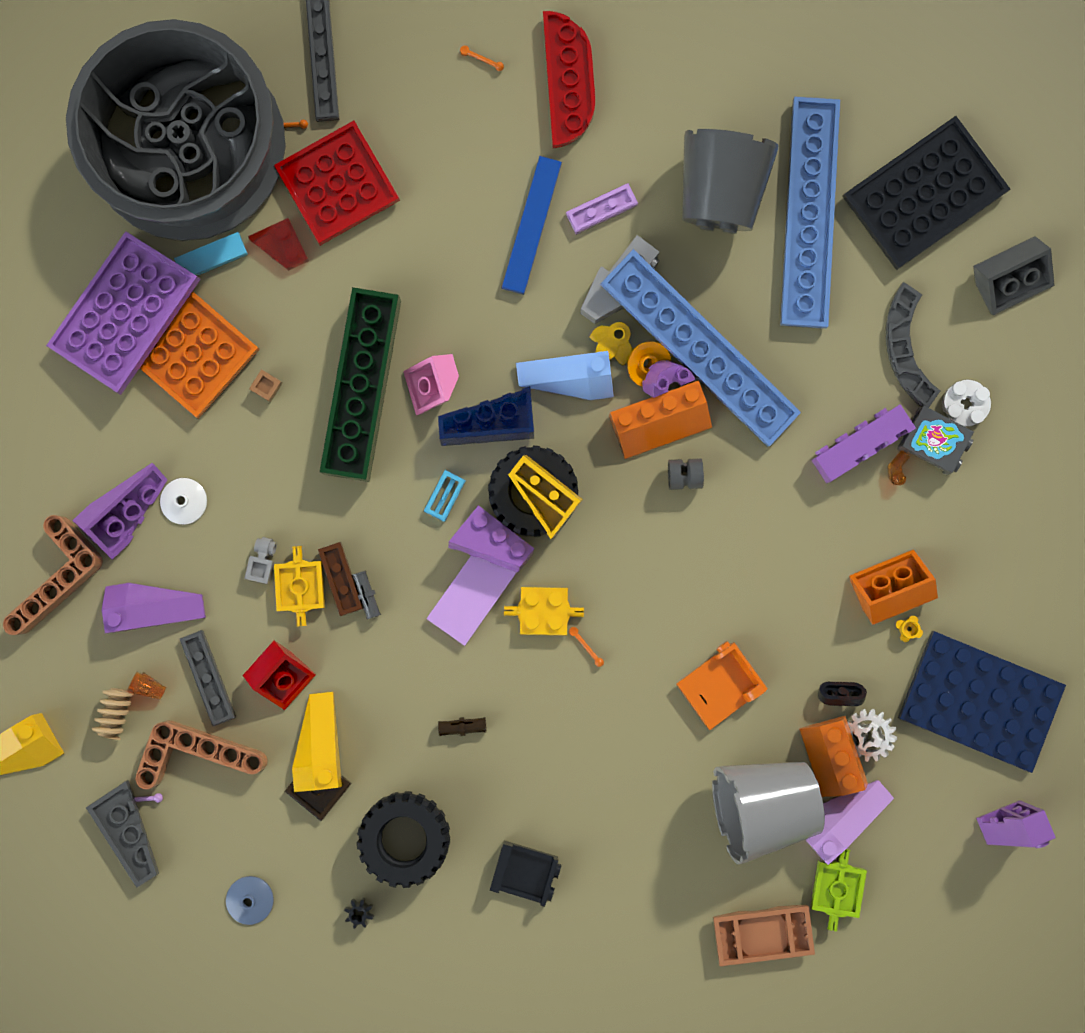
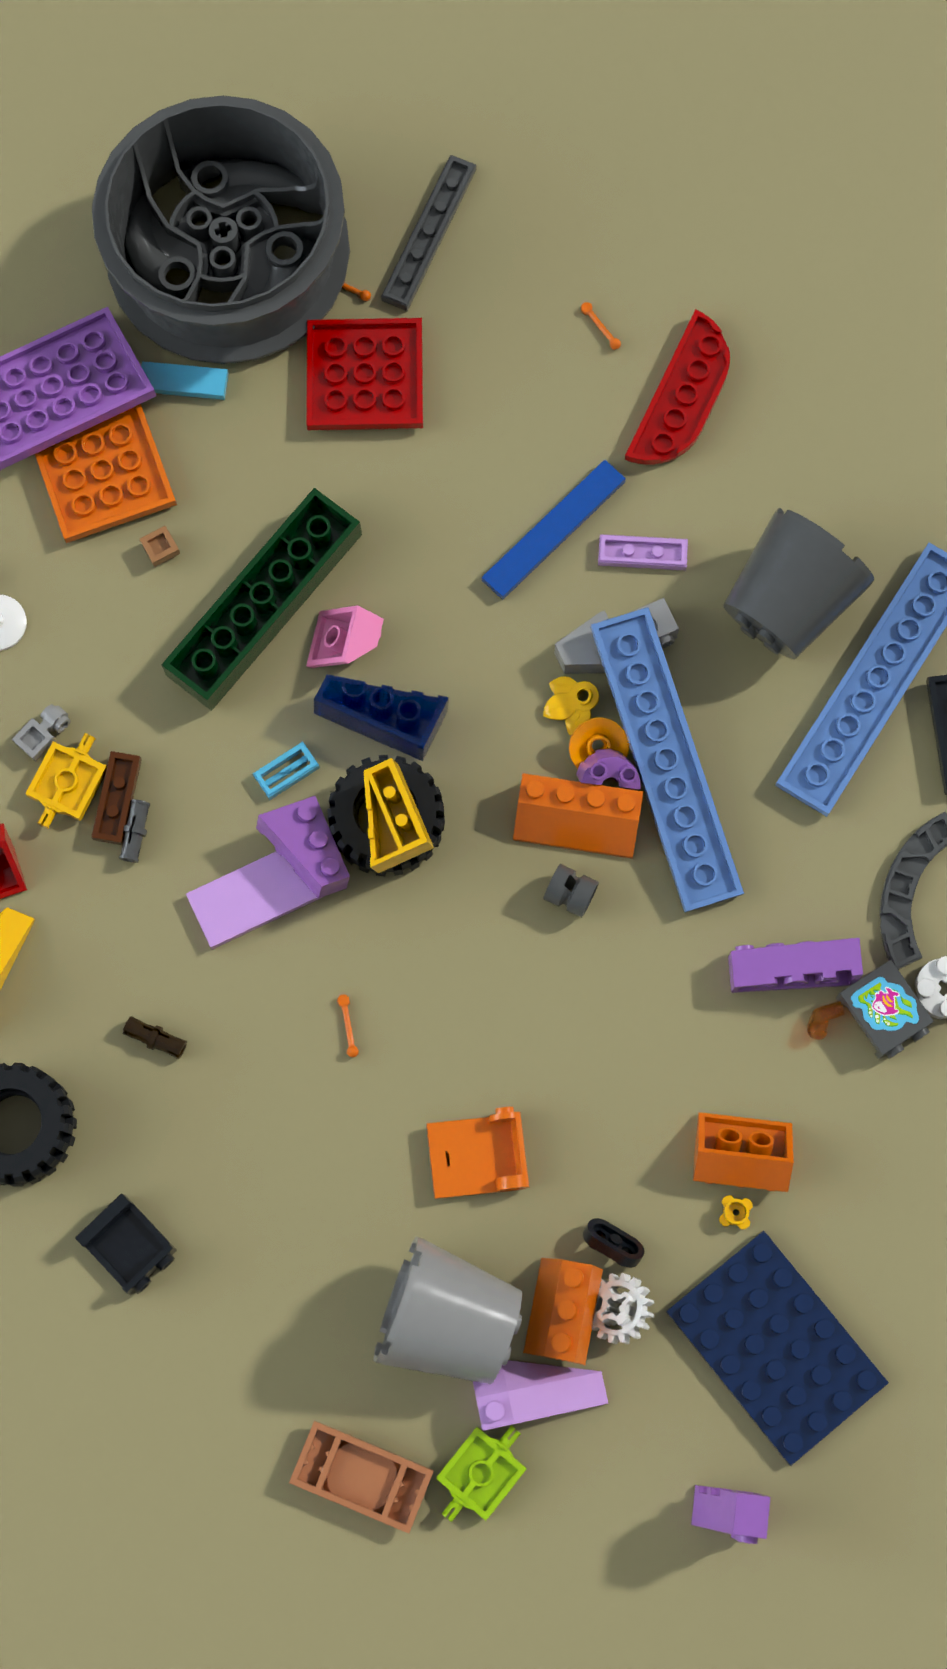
camera: 30 degrees right, 10 degrees down
(281, 244) = (266, 407): clear red wing -> none
(543, 611) = (322, 958): yellow plate -> none
(575, 376) = (508, 715): light blue wedge -> none

